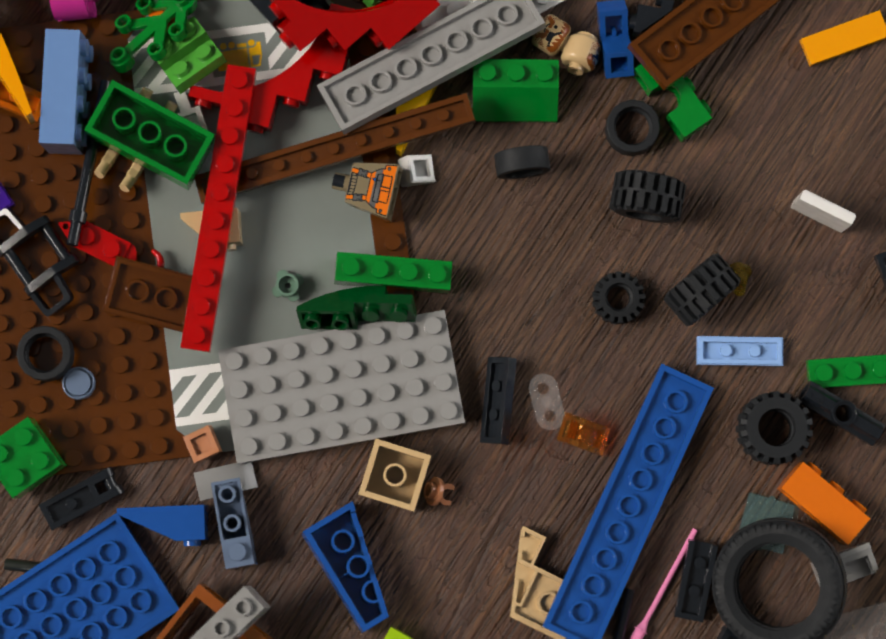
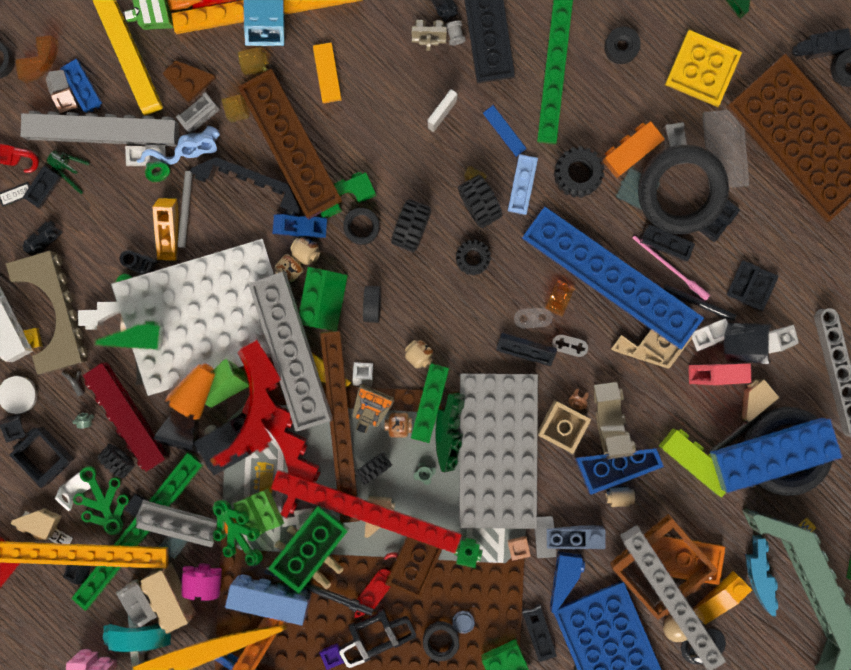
camera: 80 degrees left, 5 degrees up
(172, 370) = (476, 553): none -> green brick
(283, 208) = (374, 468): none -> black tyre
(305, 580) = (620, 497): none -> tan brick
(352, 233) = (398, 425): none -> head
(417, 543) = (612, 421): none -> dark tan brick
(462, 244) = (419, 354): none -> tan head
(508, 463) = (571, 341): none -> light grey beam
(813, 310) = (504, 130): none -> blue sticker
(855, 422) = (584, 119): black piece -> none

